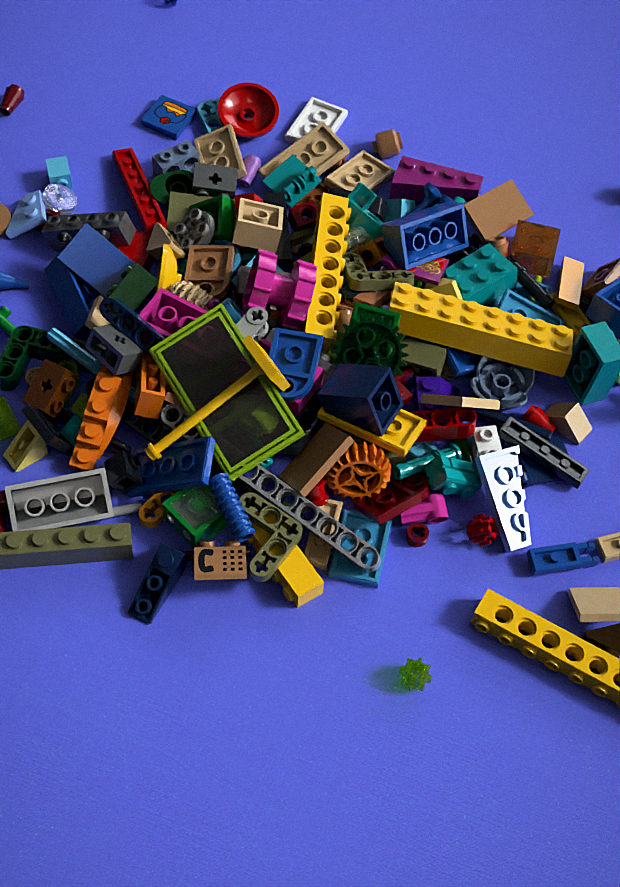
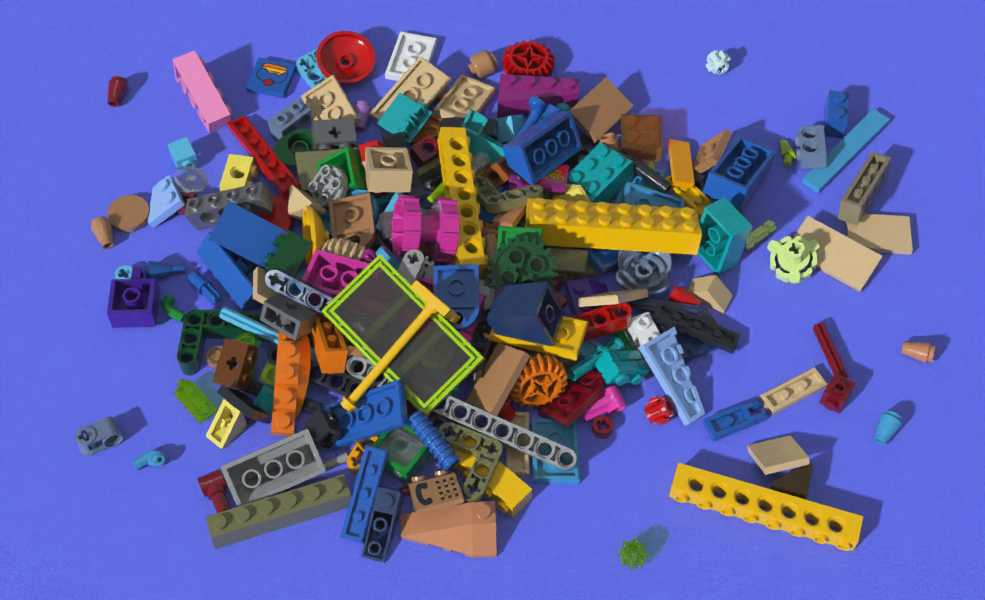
camera: 10 degrees left, 0 degrees up
(43, 307) = (205, 287): none -> blue axle
(94, 114) = (199, 86): none -> bright pink wedge
(109, 198) = (238, 172): none -> light yellow brick
(155, 531) = (364, 493): none -> blue tile
(237, 605) = (458, 528): none -> nougat wedge
(436, 147) = (539, 57): none -> red gear

